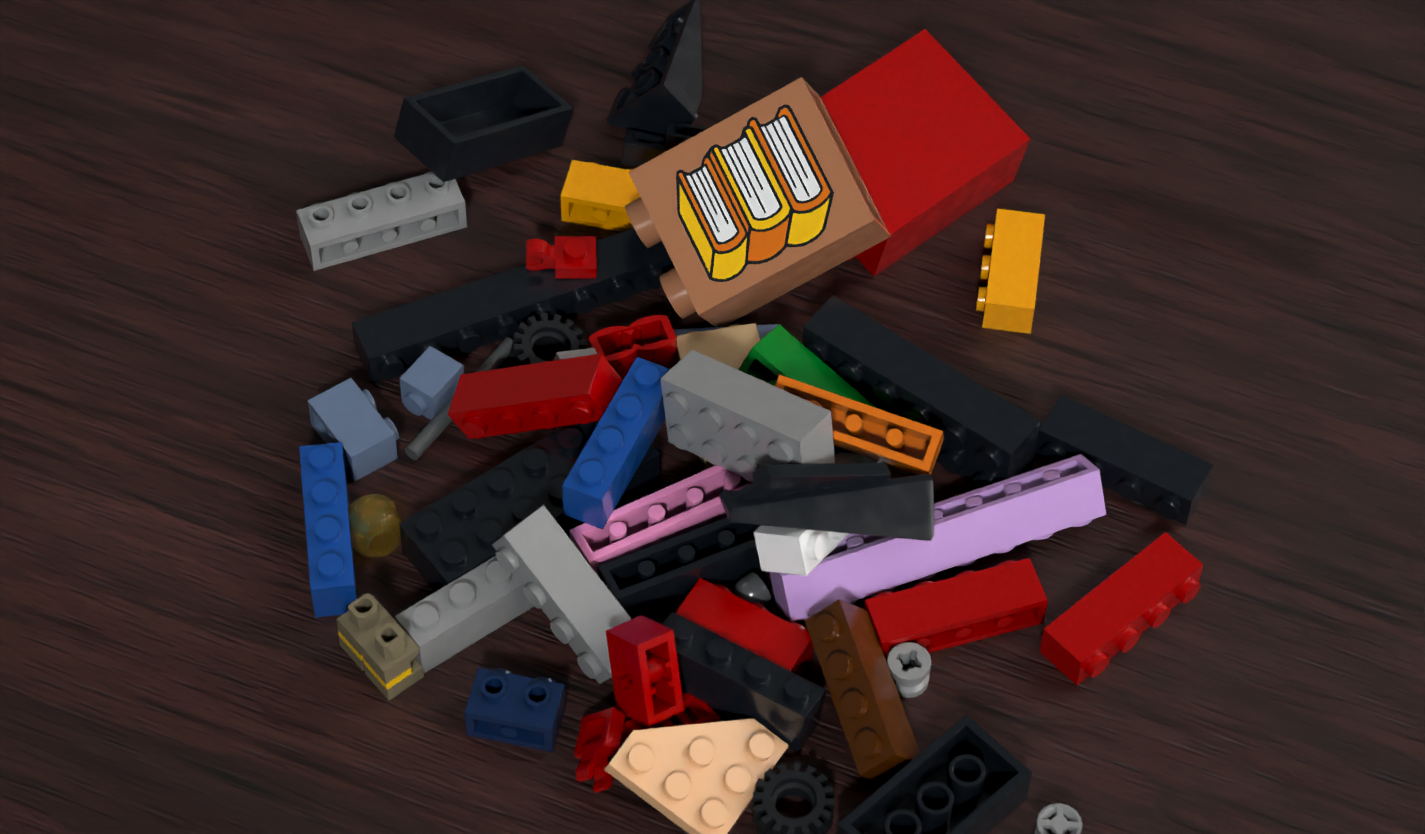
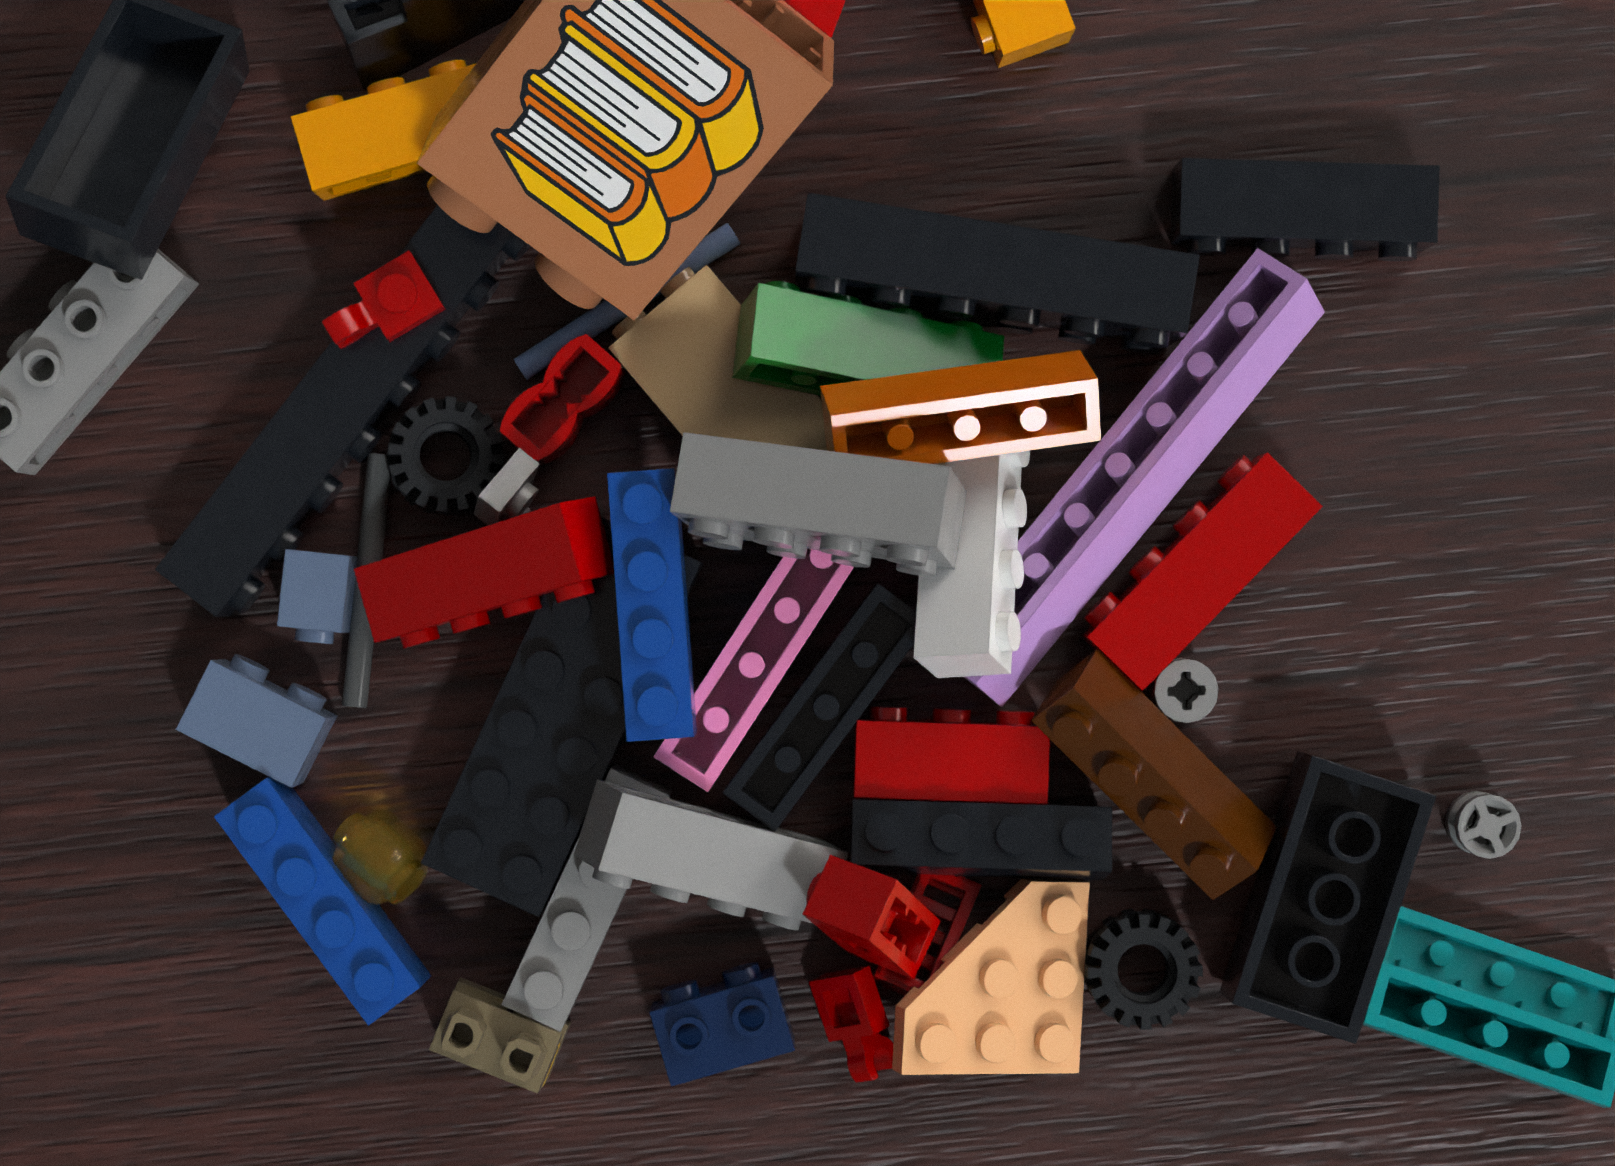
camera: 30 degrees left, 35 degrees up
(752, 589) = (918, 685): dark grey hinge -> none
(836, 499) = (1004, 566): black wedge -> none
(1121, 609) = (1413, 448): red brick -> none

